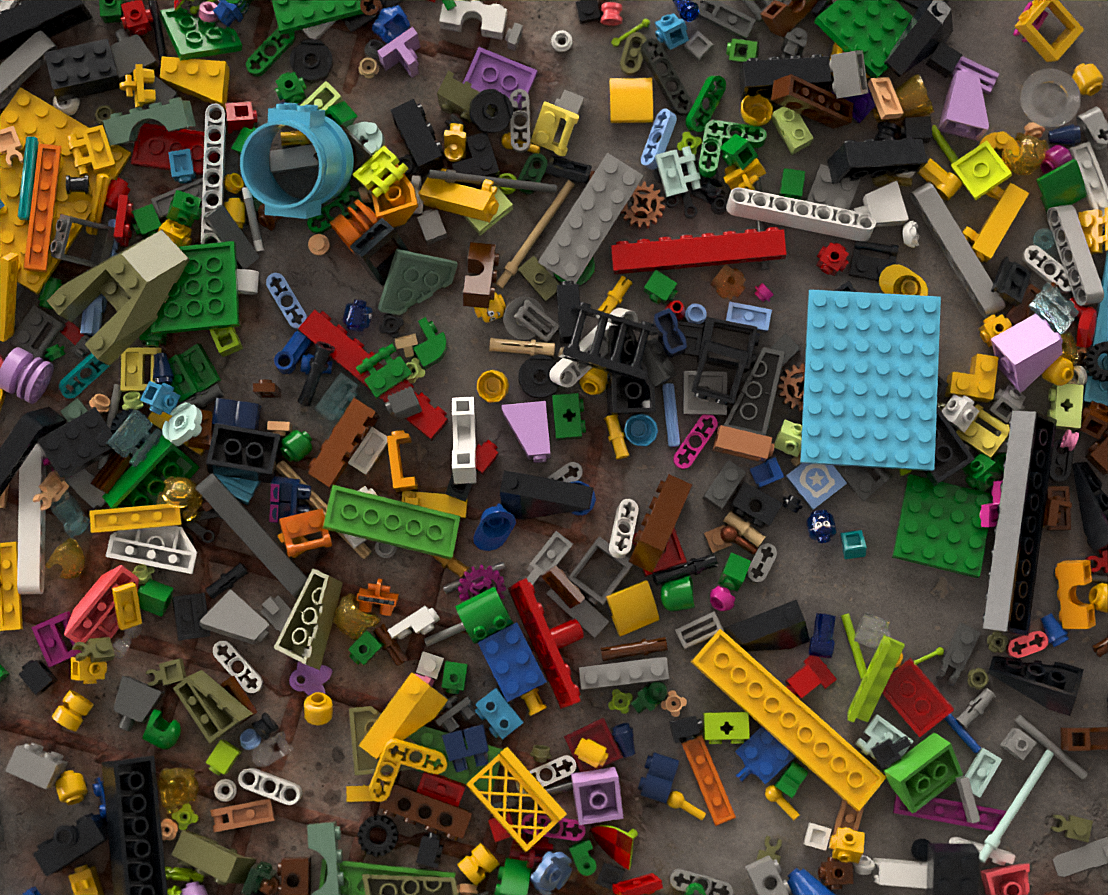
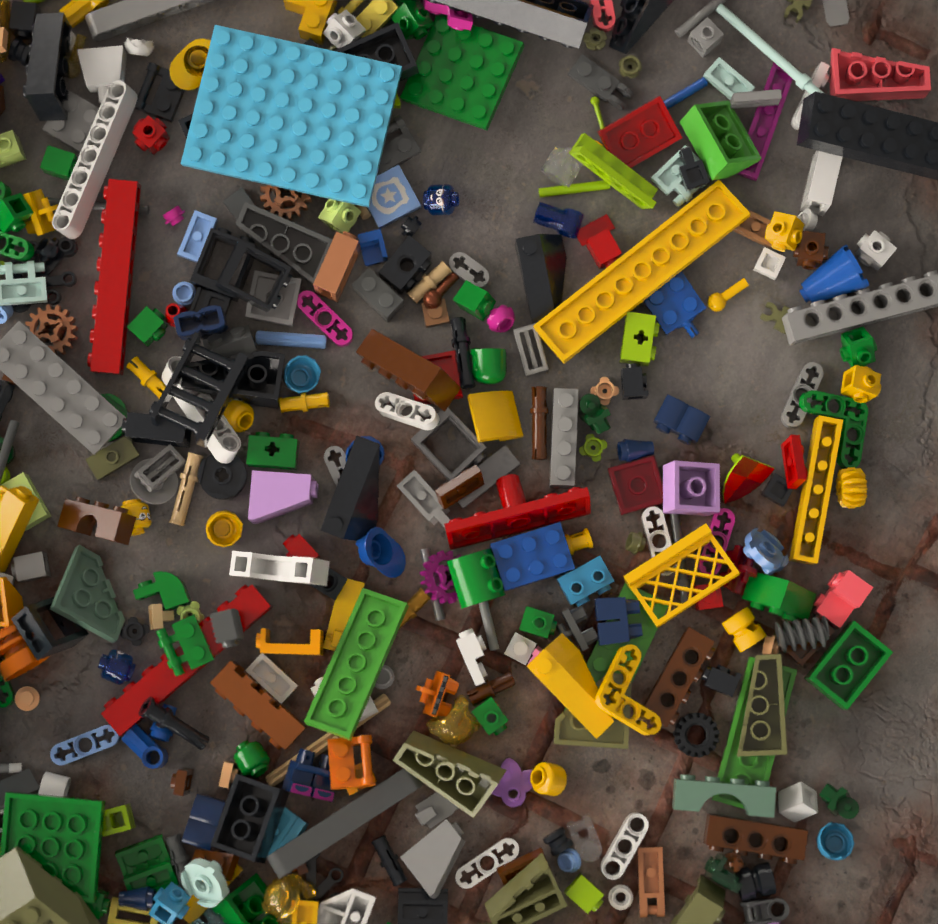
camera: 80 degrees left, 0 degrees up
(335, 397) = (205, 705): clear light blue brick -> none
(360, 793) = (647, 747): yellow window -> none
(441, 788) = (656, 656): red plate -> none
(512, 267) = (94, 486): tan bar -> none
(584, 861) = (755, 516): green leg -> none
(591, 752) = (644, 486): yellow brick -> none
(676, 801) = (709, 404): yellow bar -> none
(708, 780) = (692, 368): orange tile -> none
(730, 275) = (154, 258): clear orange brick -> none
(791, 779) = (705, 280): green leg -> none
(853, 544) = (465, 170): teal slope -> none
(920, 849) = (799, 157): black plate -> none
(976, 707) = (660, 74): light grey pin -> none

